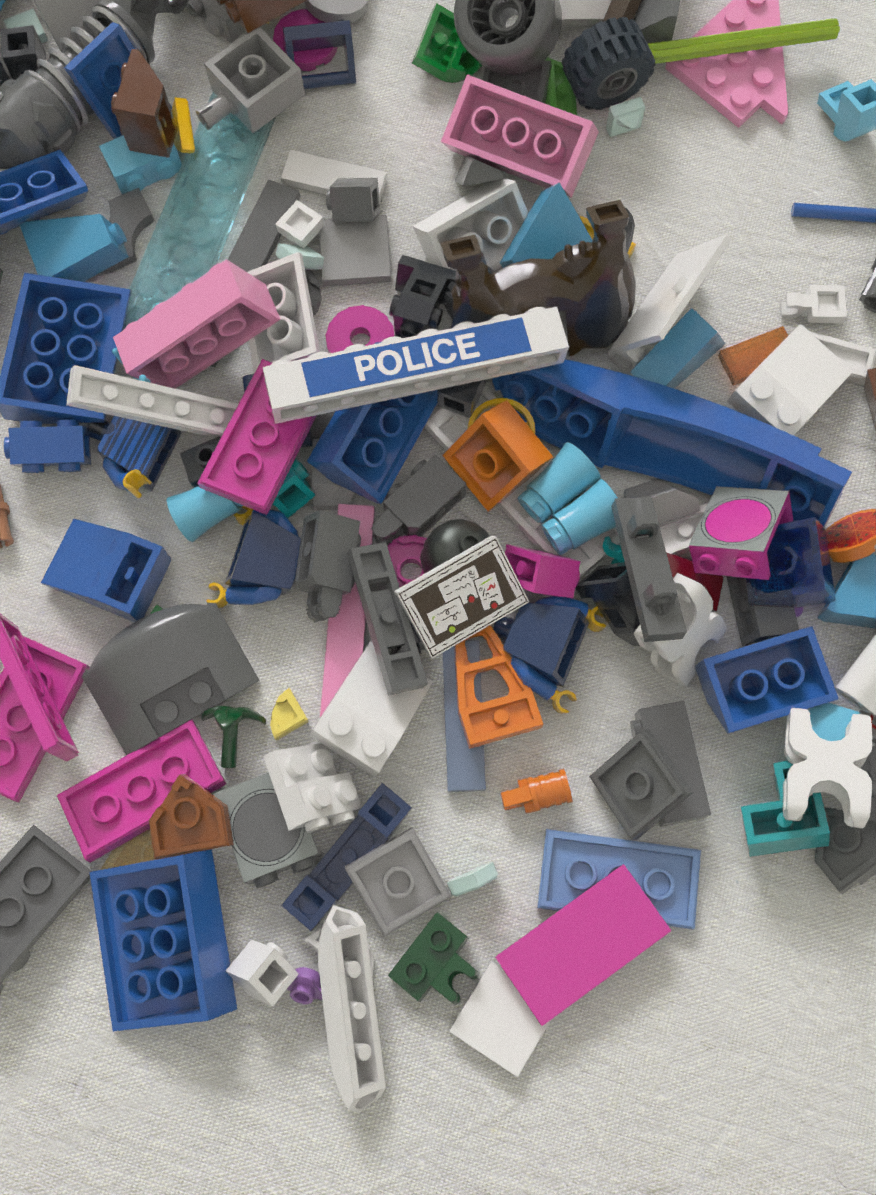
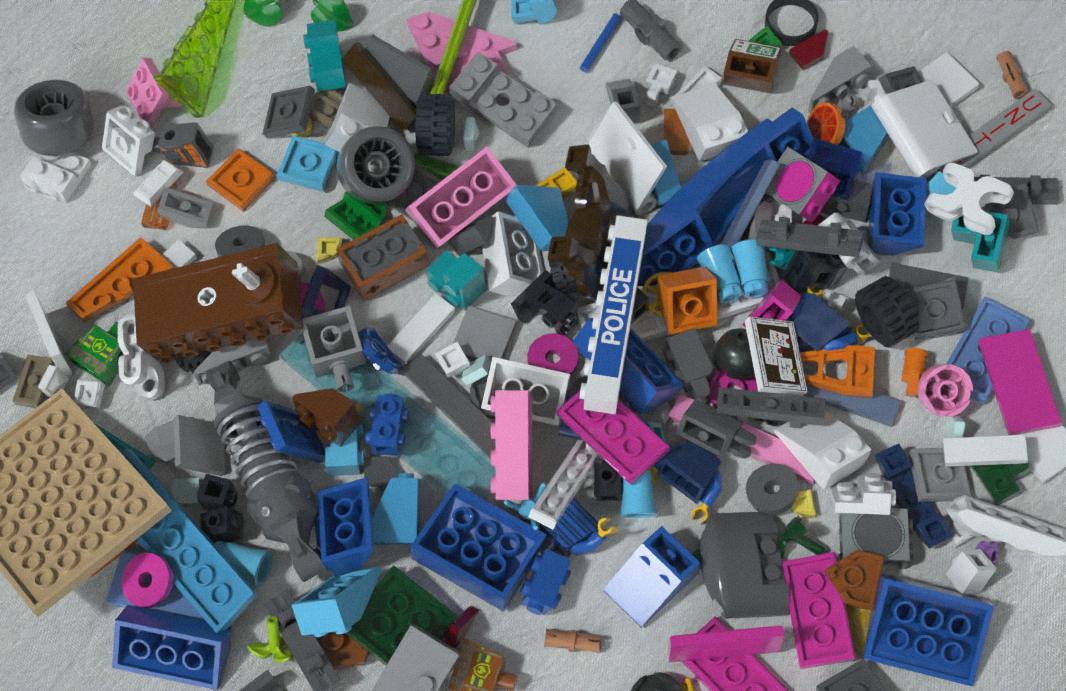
camera: 65 degrees left, 10 degrees down
(177, 186) = (388, 420): none -> blue brick
(270, 136) = (378, 352): none -> blue plate
(282, 651) = (772, 475): none -> dark grey tile
(353, 199) = (451, 318): dark grey brick -> none
(395, 37) = (327, 248): none -> light yellow tile
(401, 90) = (383, 257): none -> piece
(409, 183) = (457, 279): none -> teal brick
(449, 931) = (985, 450): none -> white tile
(517, 842) = (945, 390): none -> bright pink cylinder
(594, 651) = (835, 301): none -> white tile
(600, 719) = (887, 311): none -> black tyre
(696, 97) = (484, 83): none -> light grey piece
(708, 480) = (751, 202): none -> sand blue tile
(764, 270) = (626, 96): none -> dark grey slope

